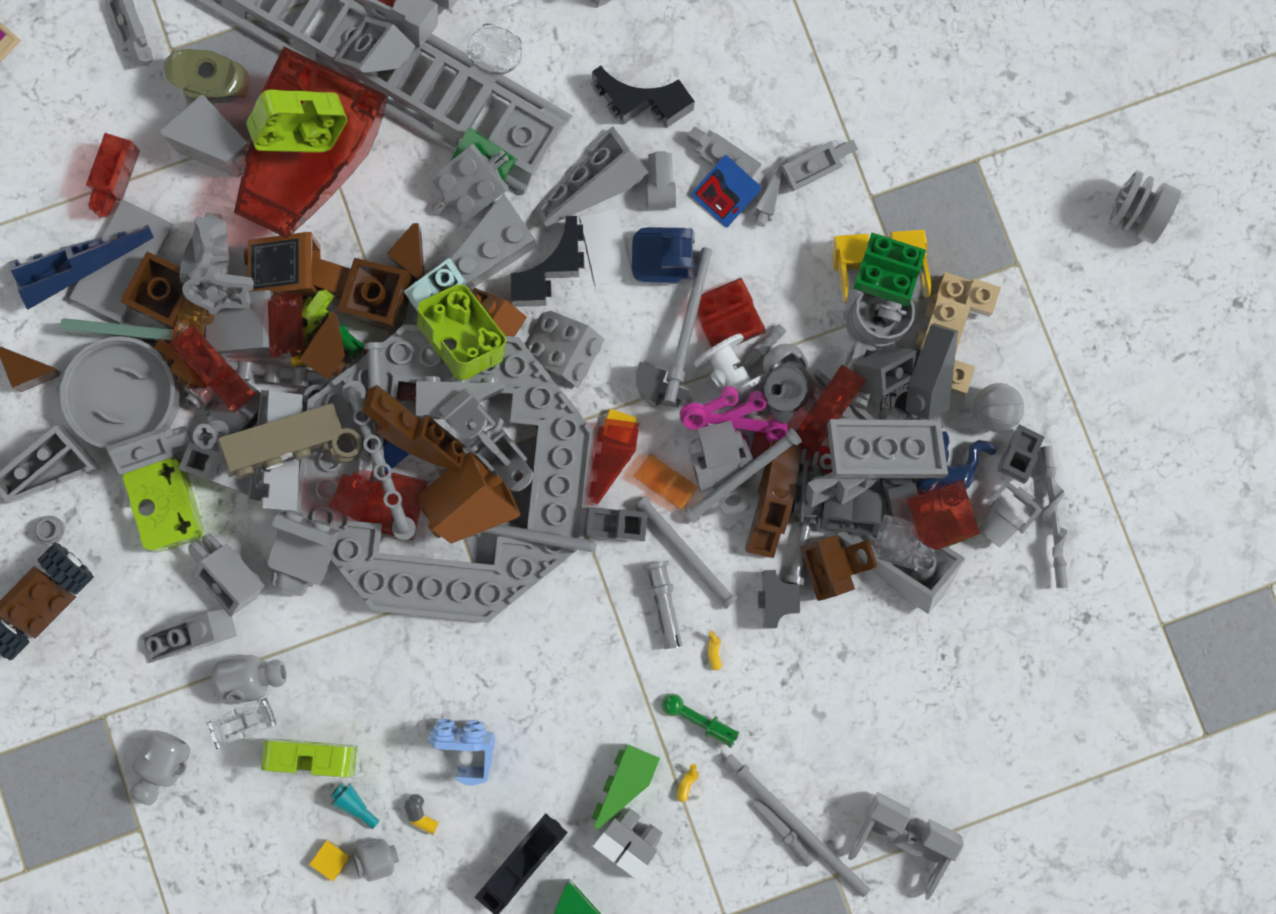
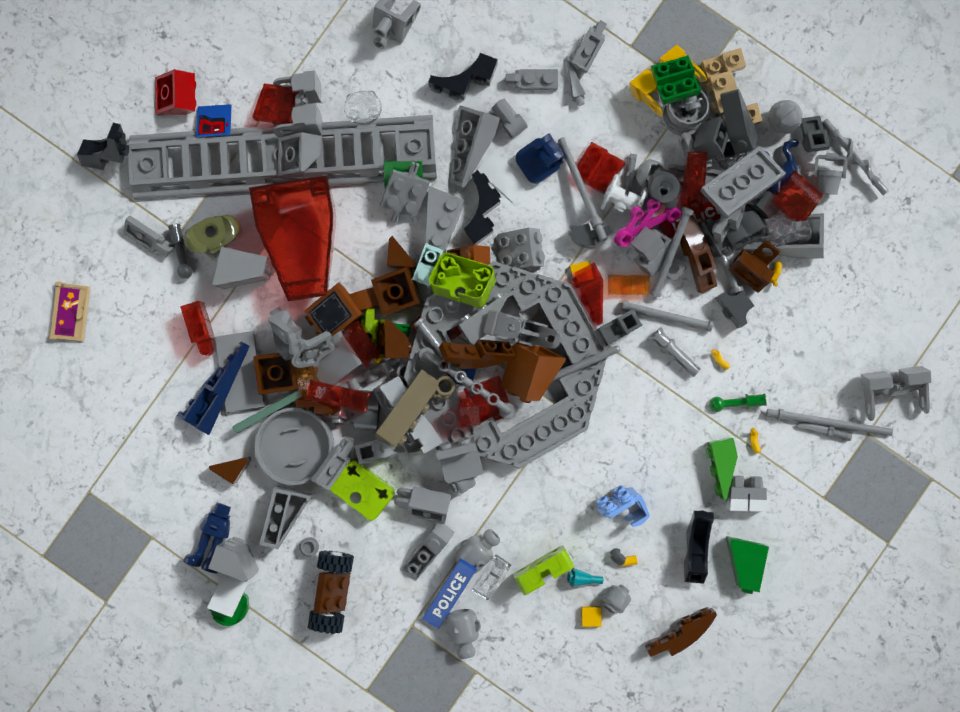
camera: 30 degrees left, 5 degrees up
(144, 96) = (184, 270): none -> dark grey pin
(174, 705) = (449, 593): none -> blue tile
(207, 428) = (365, 435): light grey bush -> none
(286, 125) = (287, 225): lime axle -> none
(726, 191) = (549, 98): sticker -> none
(858, 594) = (777, 271): none -> yellow piece

